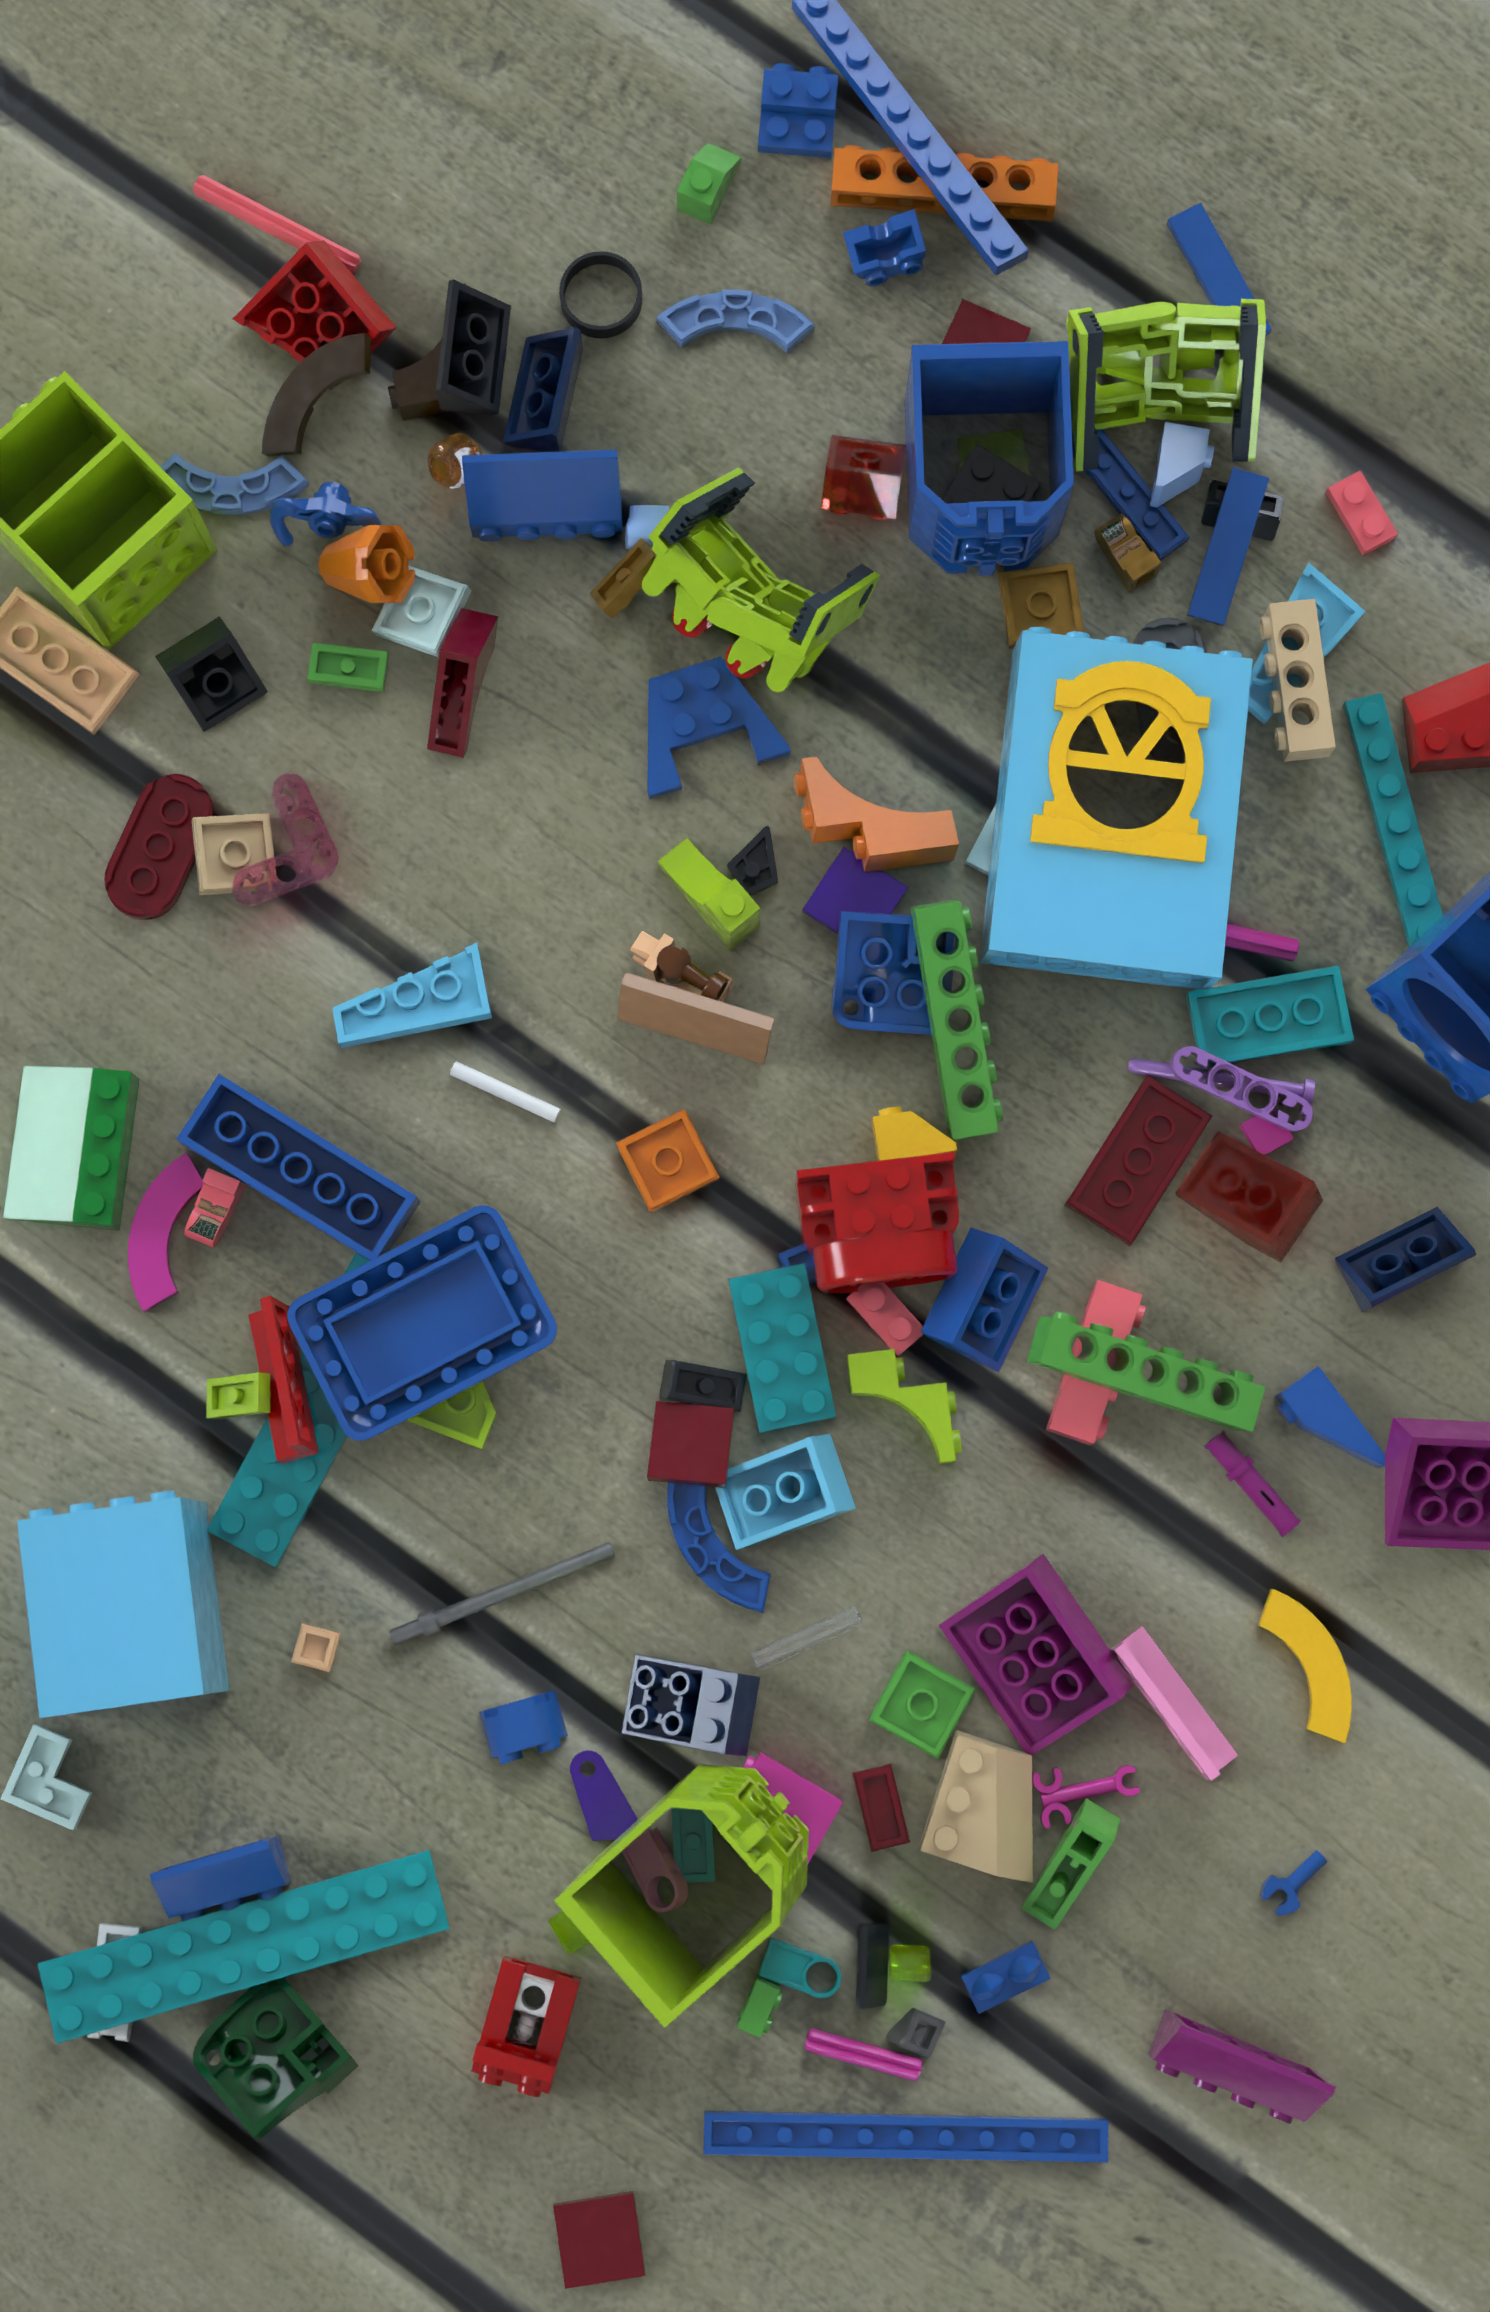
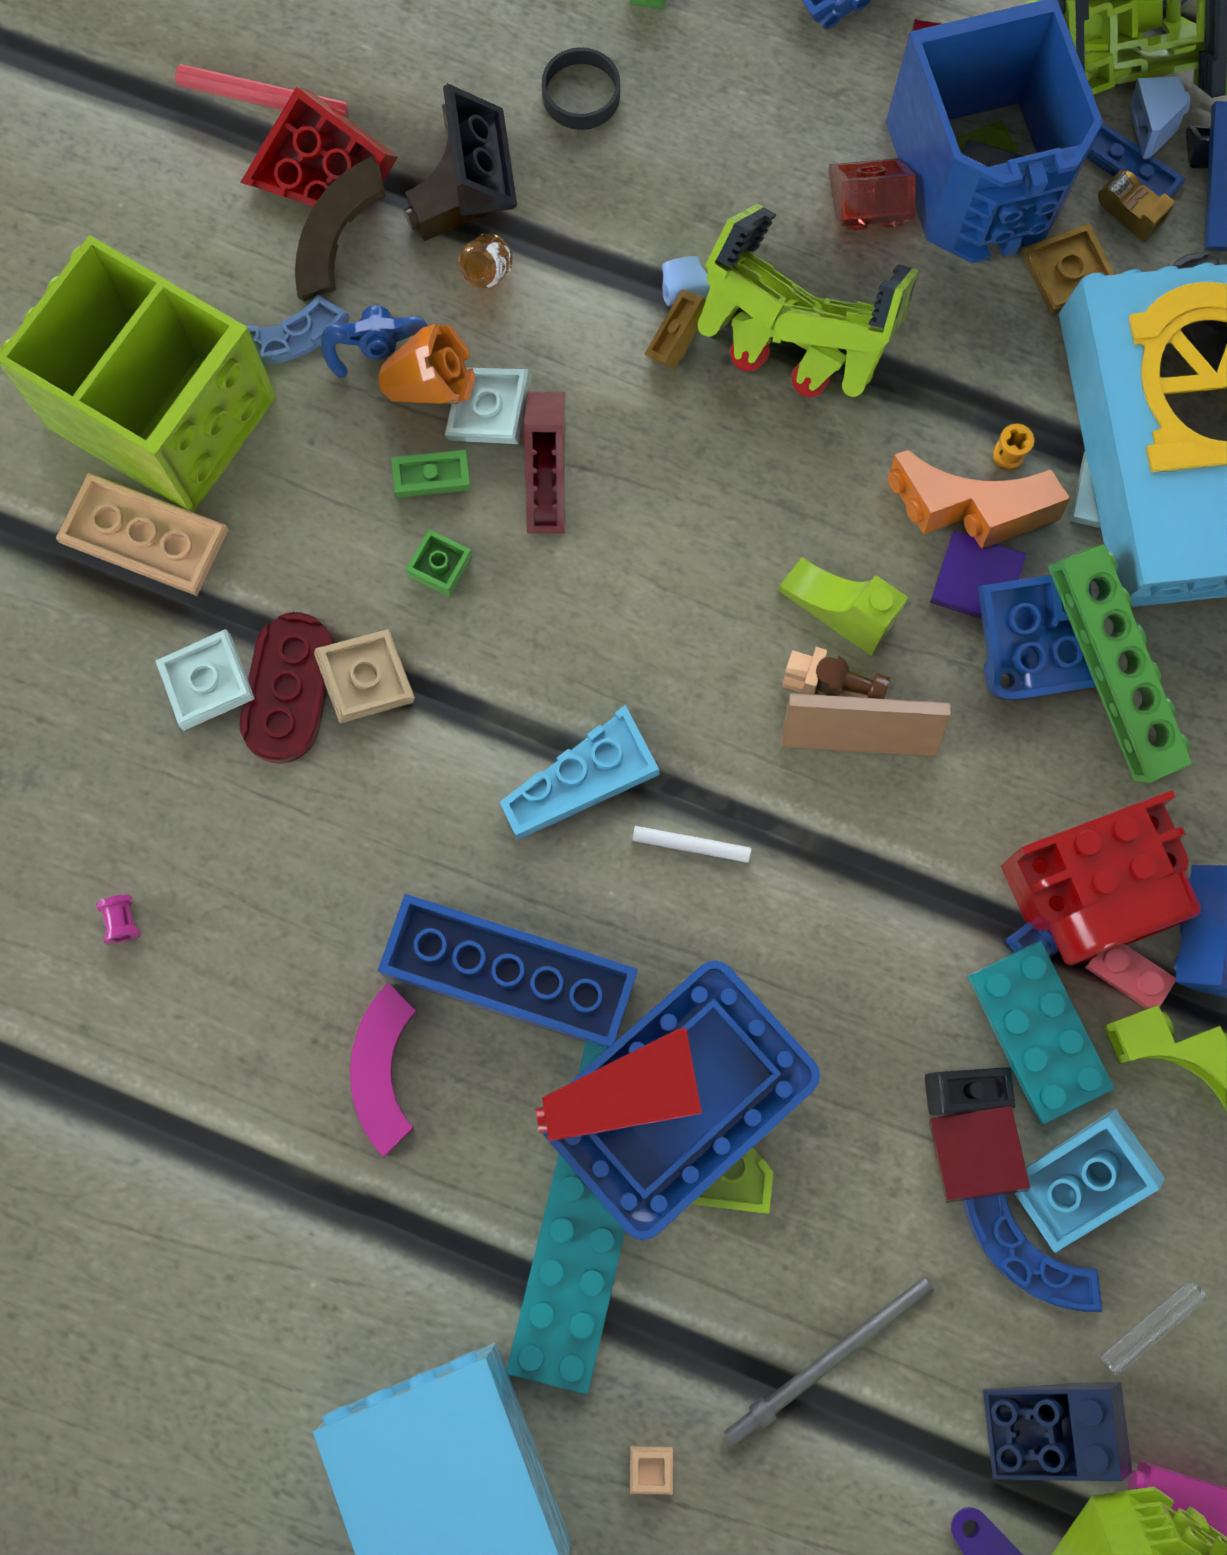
camera: 15 degrees left, 5 degrees down
(72, 1146) = (269, 1005): slope -> none
(82, 821) = (204, 679): none -> light aqua plate
(211, 673) = (299, 509): black slope -> none
(213, 1208) = (430, 1032): coral leg -> none
(238, 1395) = (505, 1222): lime plate -> none
(289, 1403) = (548, 1196): red fence -> none
(300, 858) = (429, 664): clear pink beam -> none
(333, 759) = (439, 563): none -> bright green piece
(375, 1304) = (632, 1091): none -> red slope
(524, 1725) = (891, 1501): blue cylinder -> none
(543, 494) = (581, 264): blue slope -> none
(544, 390) = (551, 182): dark blue slope -> none
(667, 1160) = (872, 872): orange plate -> none
(697, 707) = (778, 433): blue wing -> none
(735, 311) = (709, 77): medium blue tile -> none
(755, 864) = (874, 560): black piece -> none
(907, 1135) = (1100, 792): yellow slope -> none
(935, 770) = (1013, 446): none -> light orange bush

